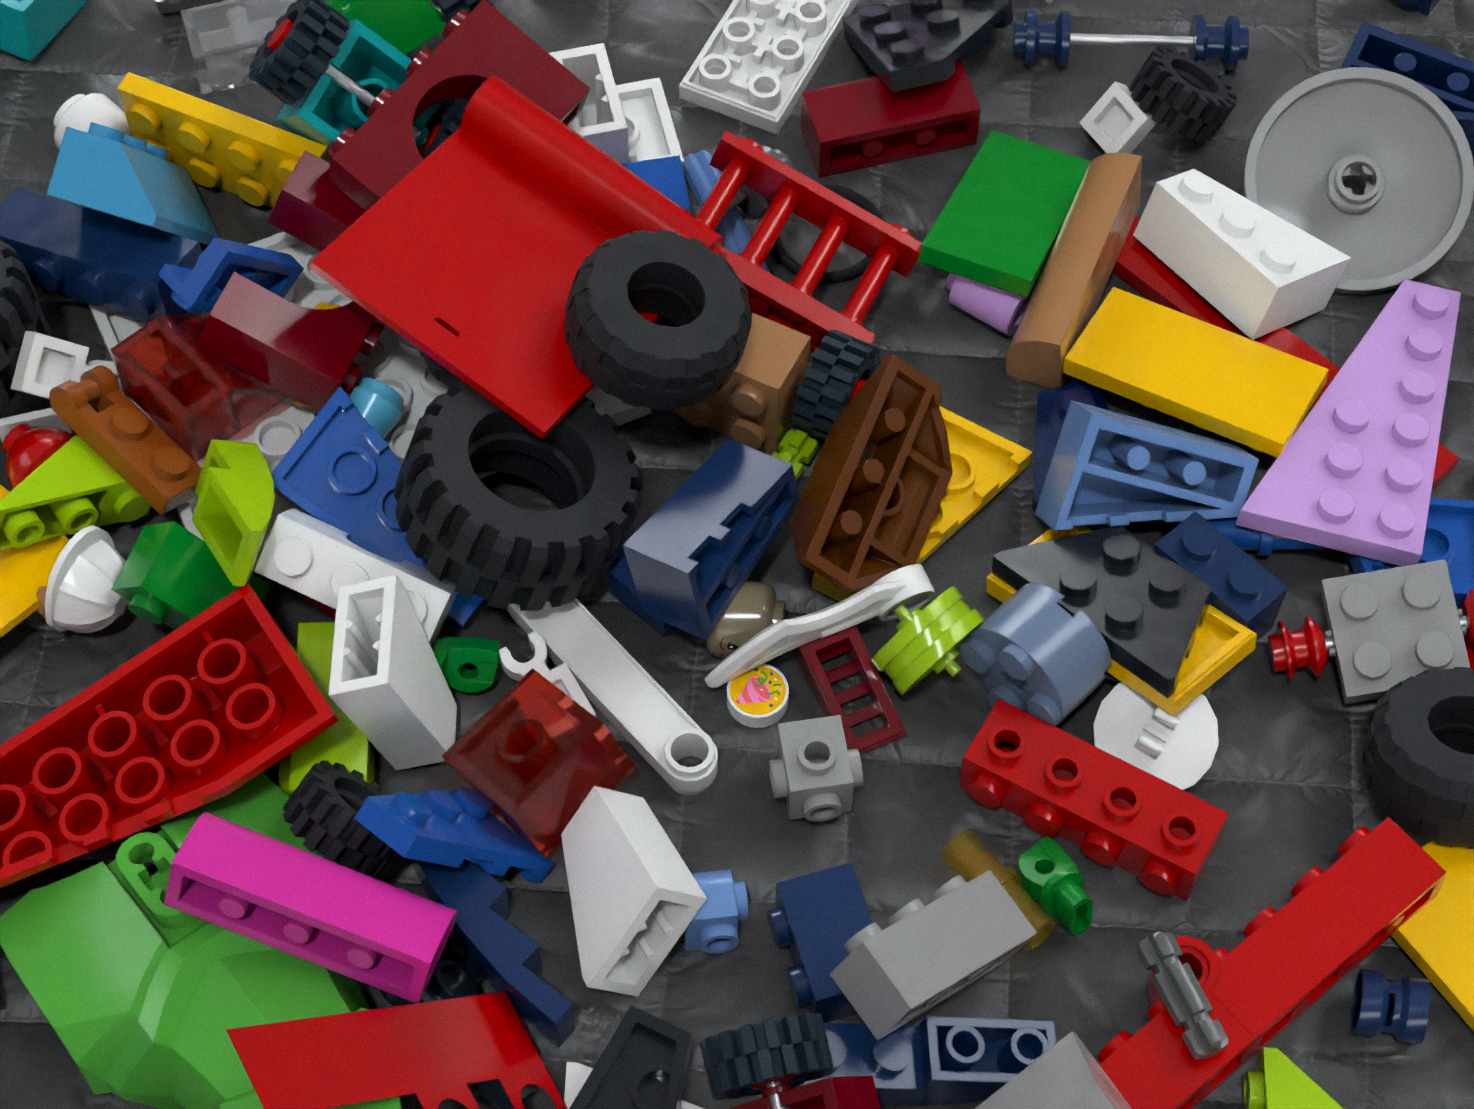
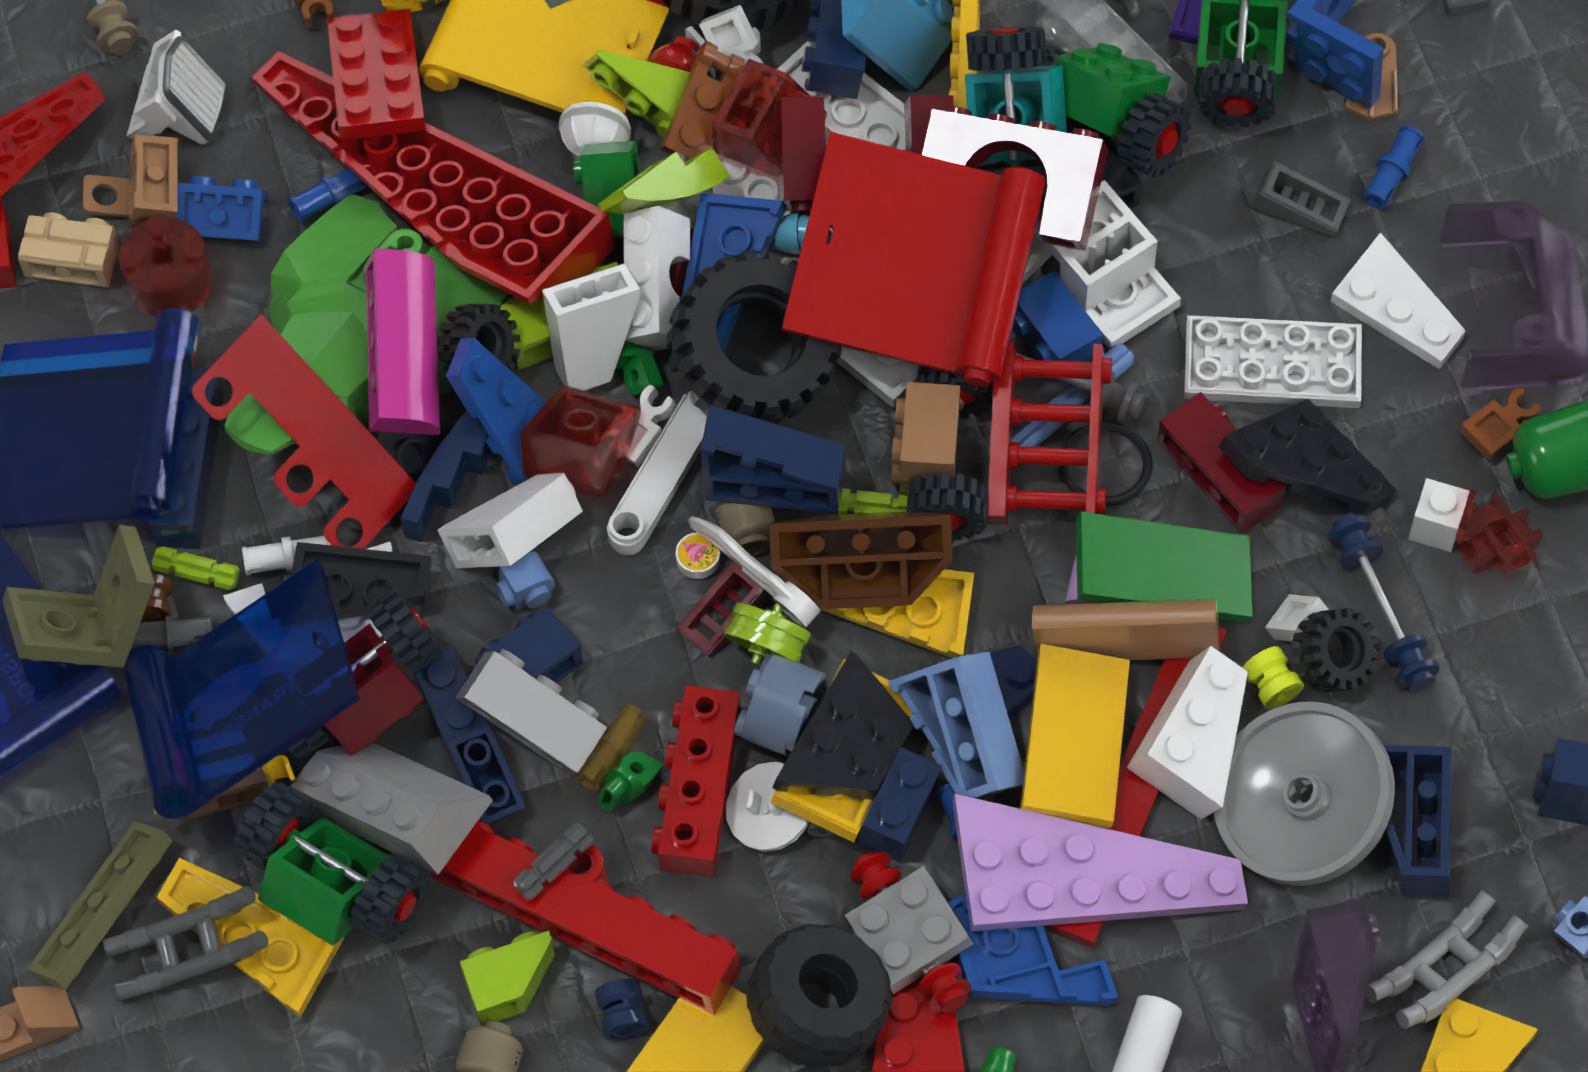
camera: 70 degrees right, 5 degrees up
(201, 287) = (843, 104): blue bracket -> none
(649, 361) = (903, 316): black tyre -> none
(815, 769) = (645, 604): light grey brick -> none
(1172, 160) = (1274, 680): none -> neon yellow wheel

